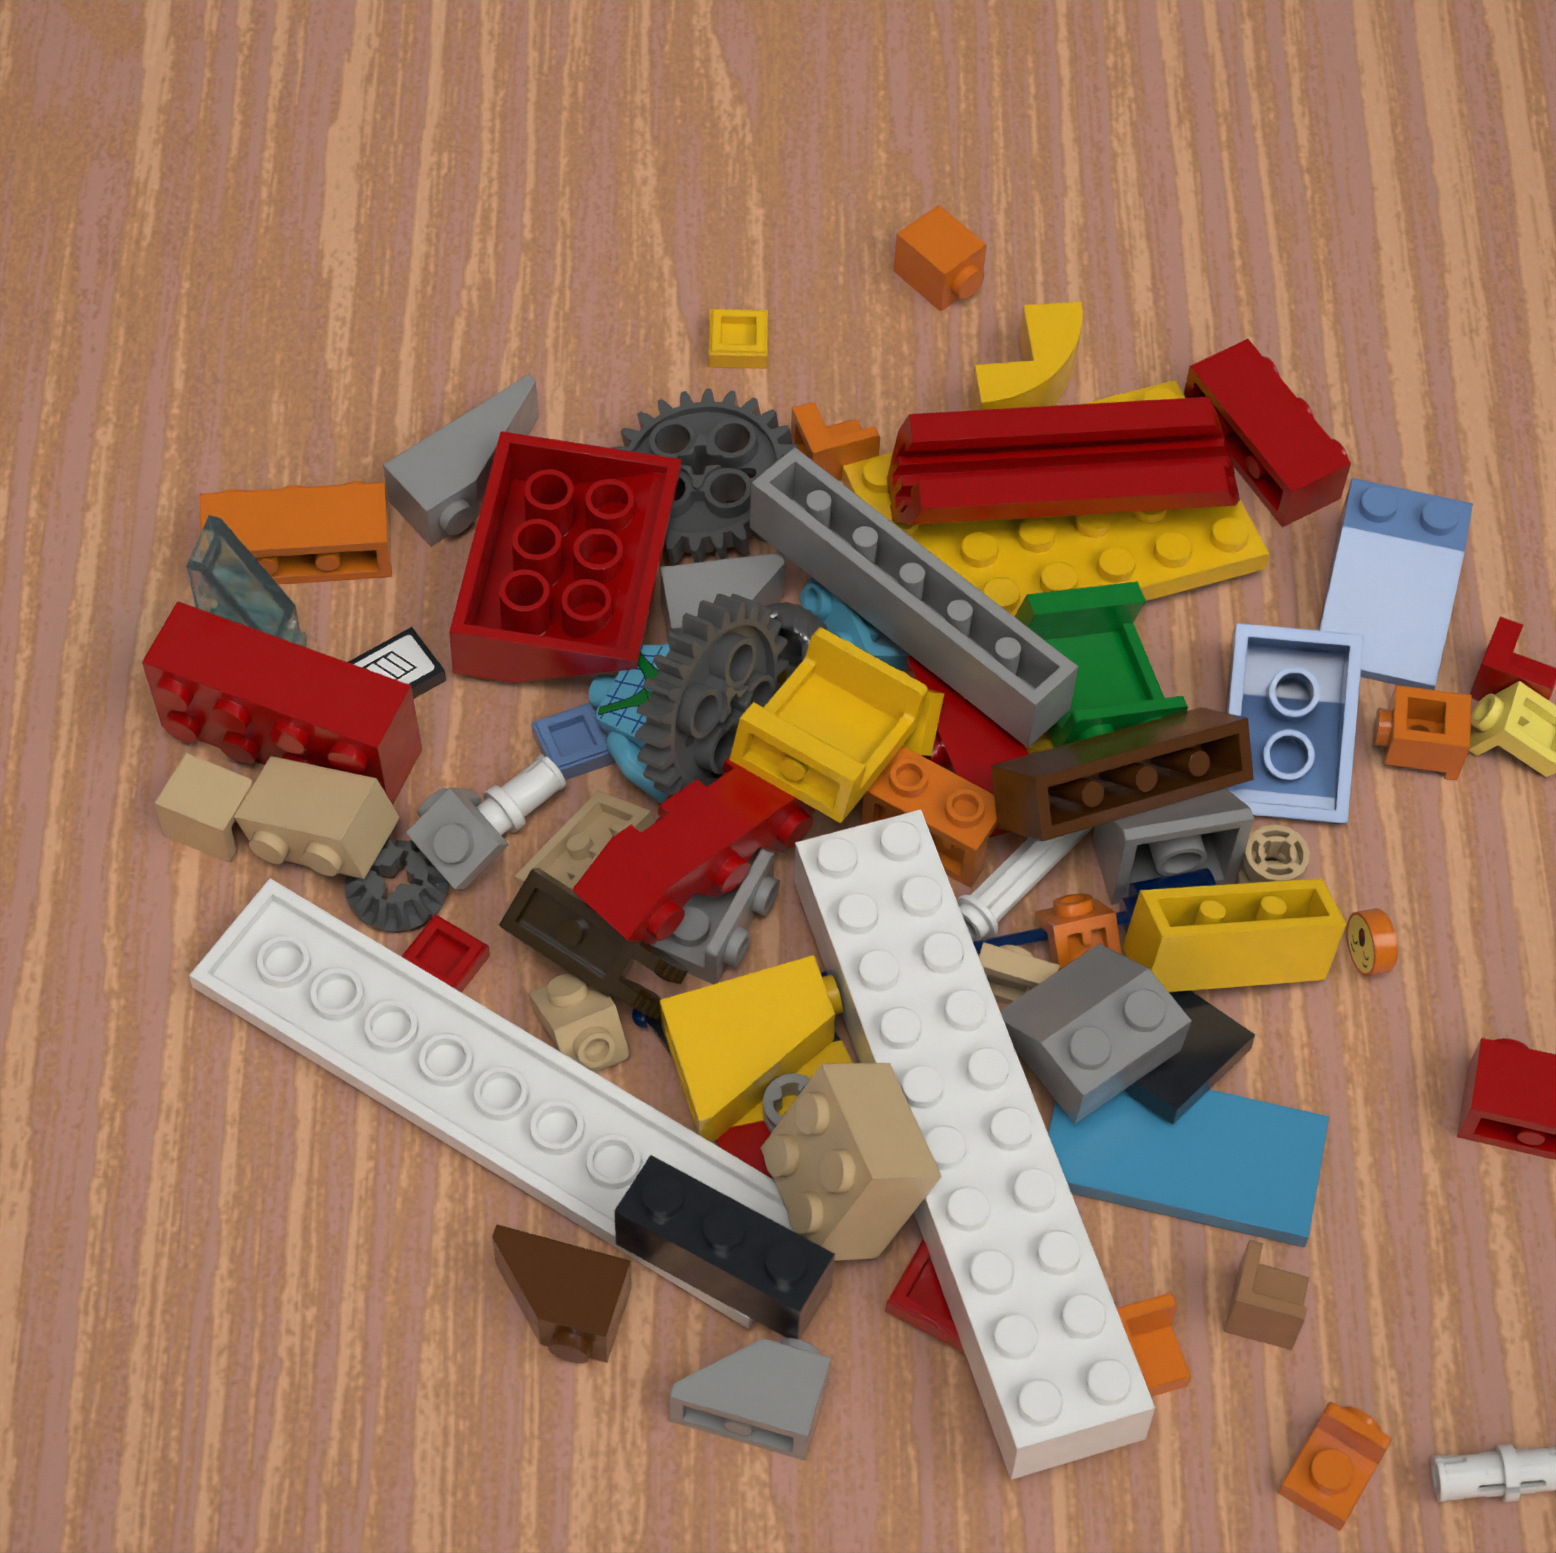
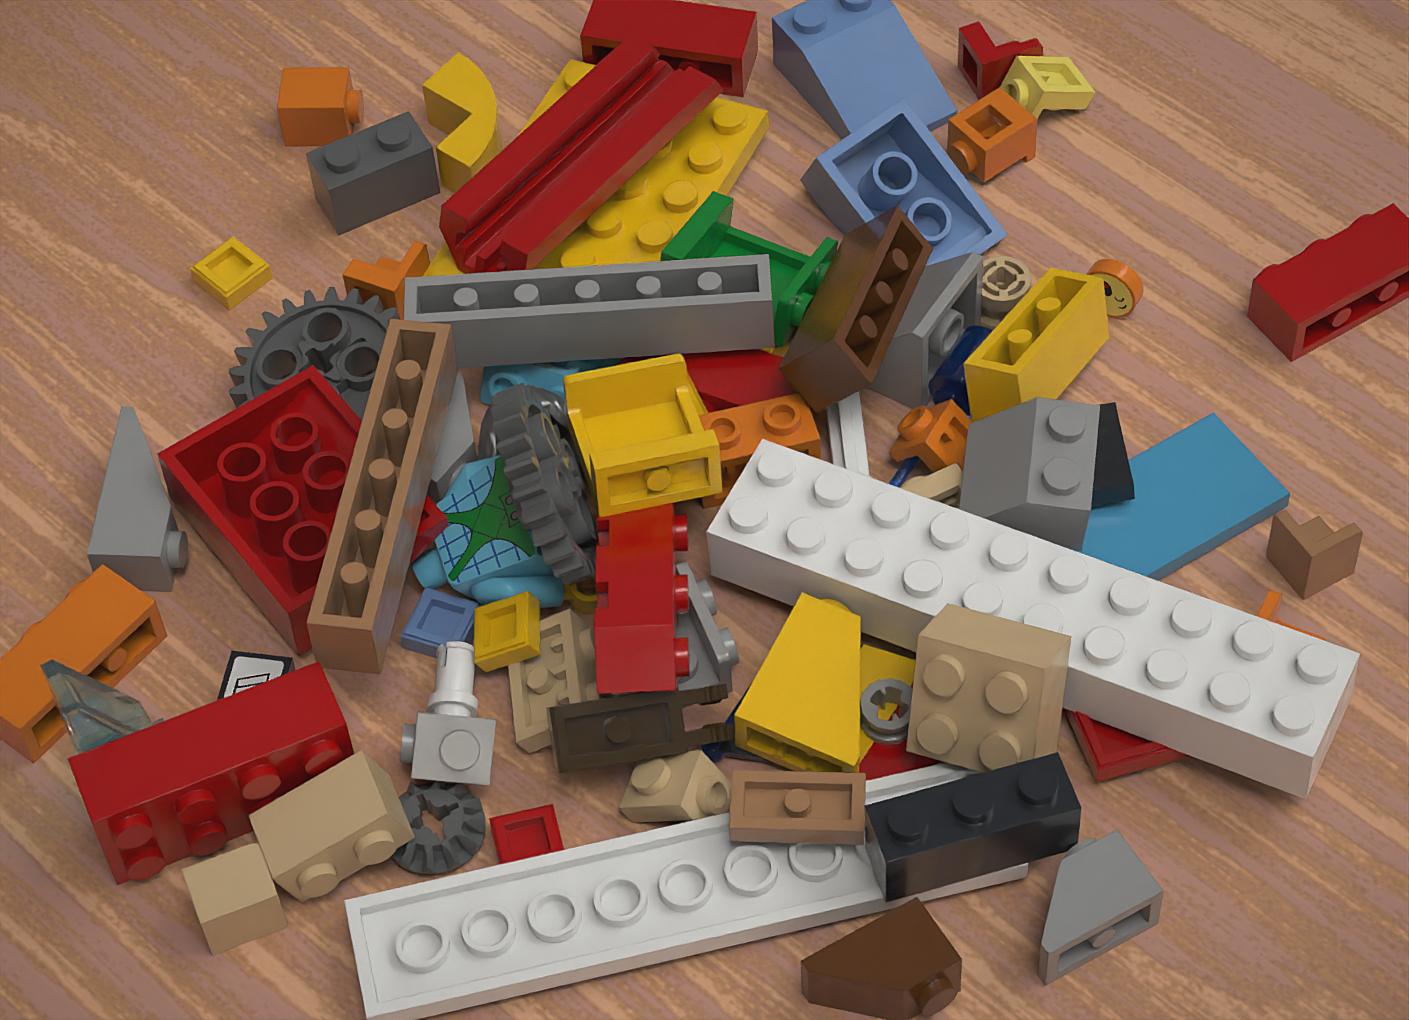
camera: 40 degrees left, 5 degrees down
(592, 601) = (383, 498): none -> medium nougat brick
(597, 787) = (507, 631): none -> yellow tile
(627, 1109) = (797, 807): none -> medium nougat plate
(916, 346) = (373, 173): none -> dark grey brick

